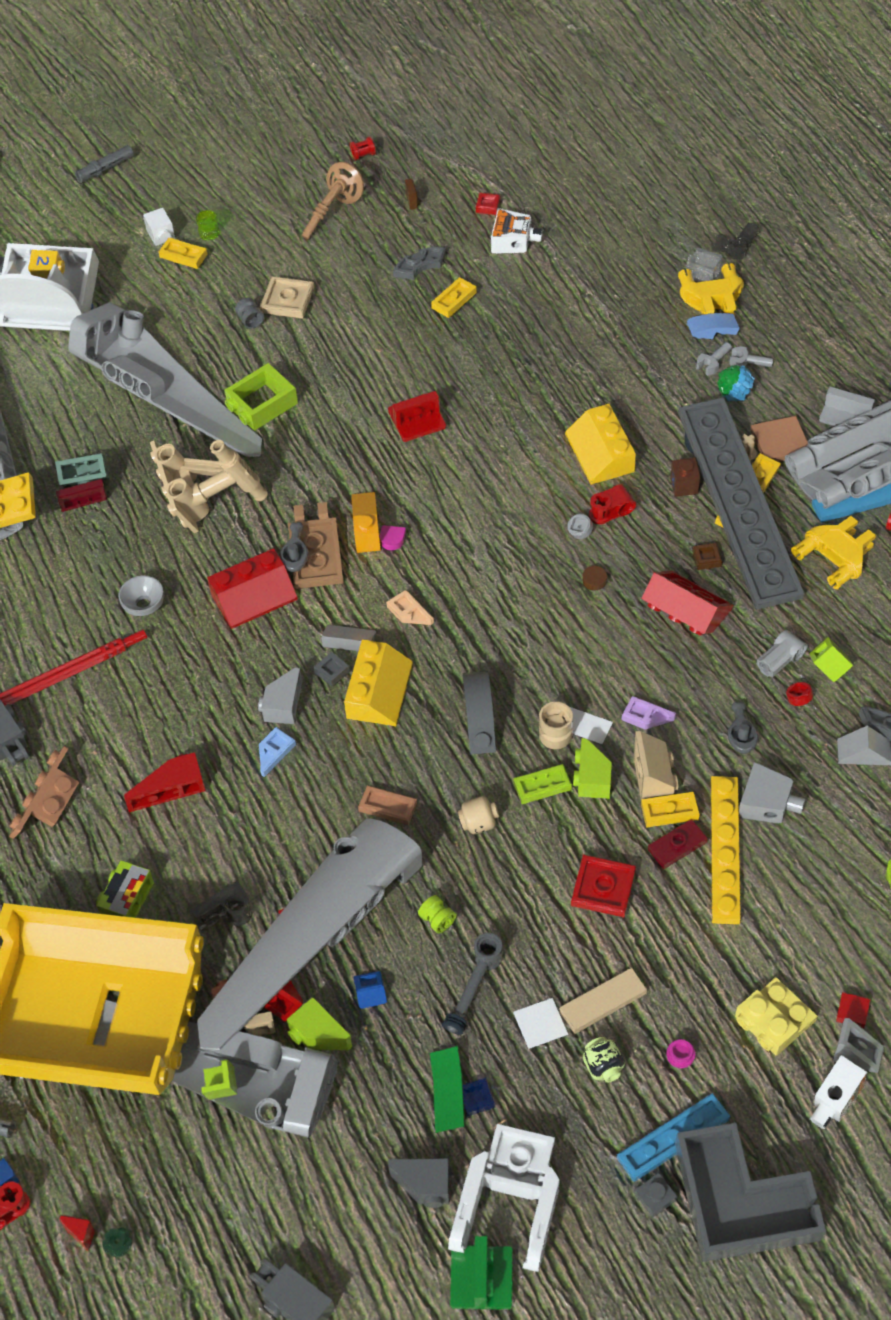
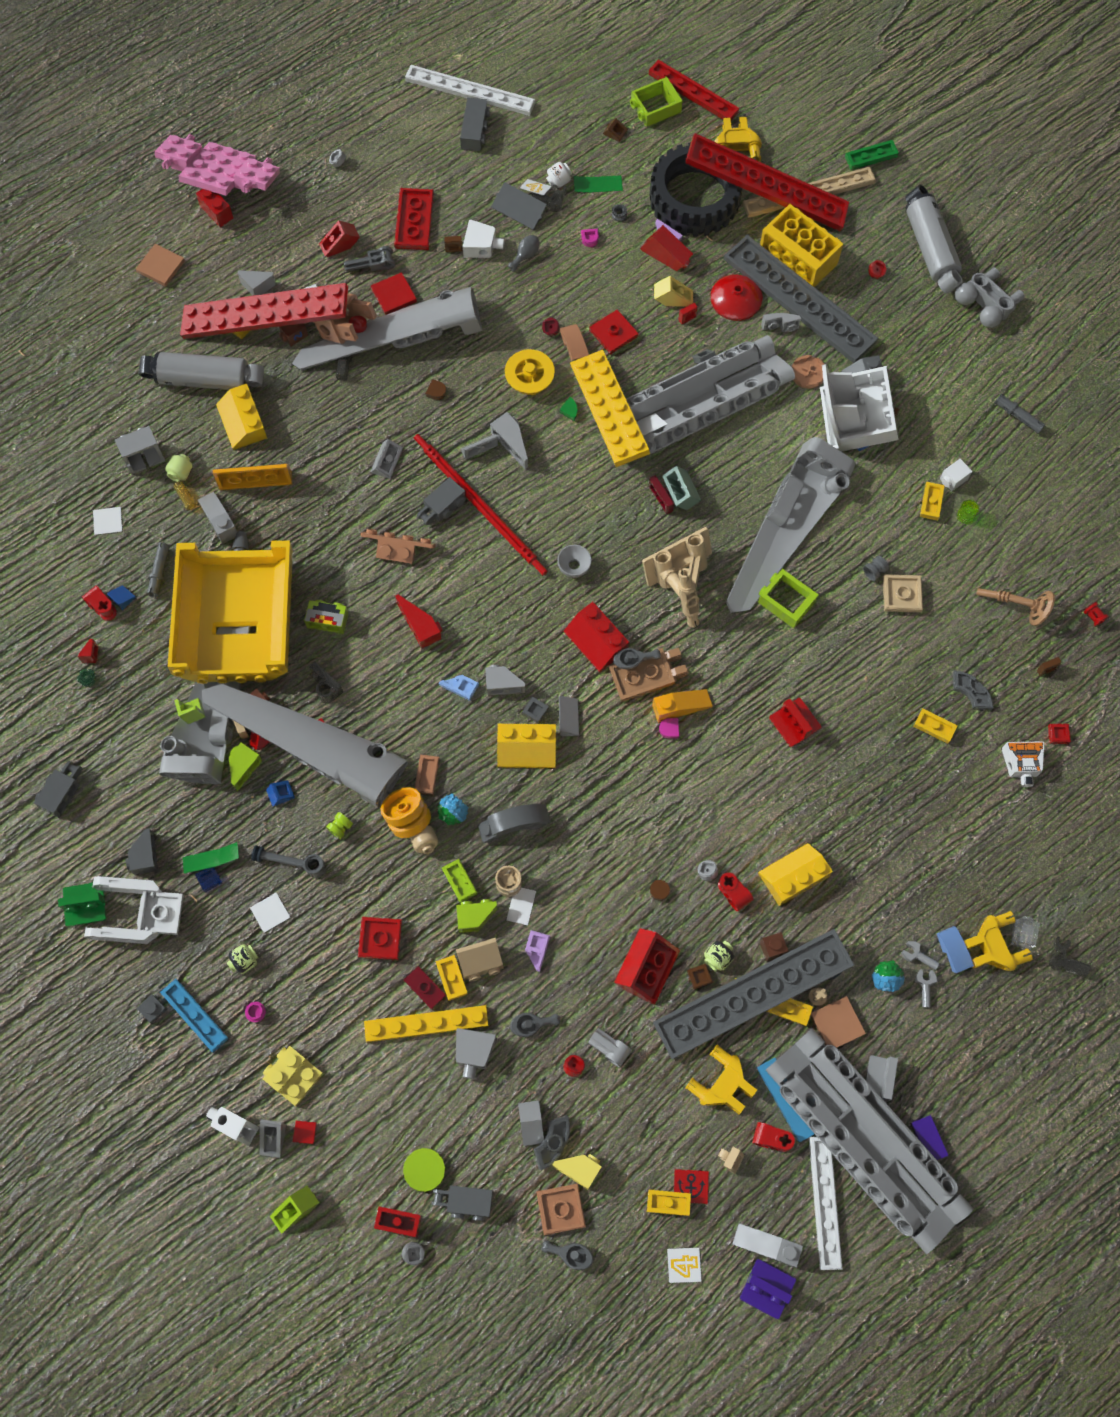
camera: 75 degrees right, 15 degrees up
(42, 262) = (866, 400): yellow brick -> none
(409, 610) = (603, 754): light nougat tile -> none
(441, 822) = (405, 812): none -> light orange wheel
(447, 774) = (452, 810): none -> dark azure piece
(603, 1000) = (290, 952): tan tile -> none
(686, 530) = (719, 955): none -> yellowish green head
(741, 1214) = (136, 1061): dark grey piece -> none
(831, 659) = (610, 1087): lime panel -> none

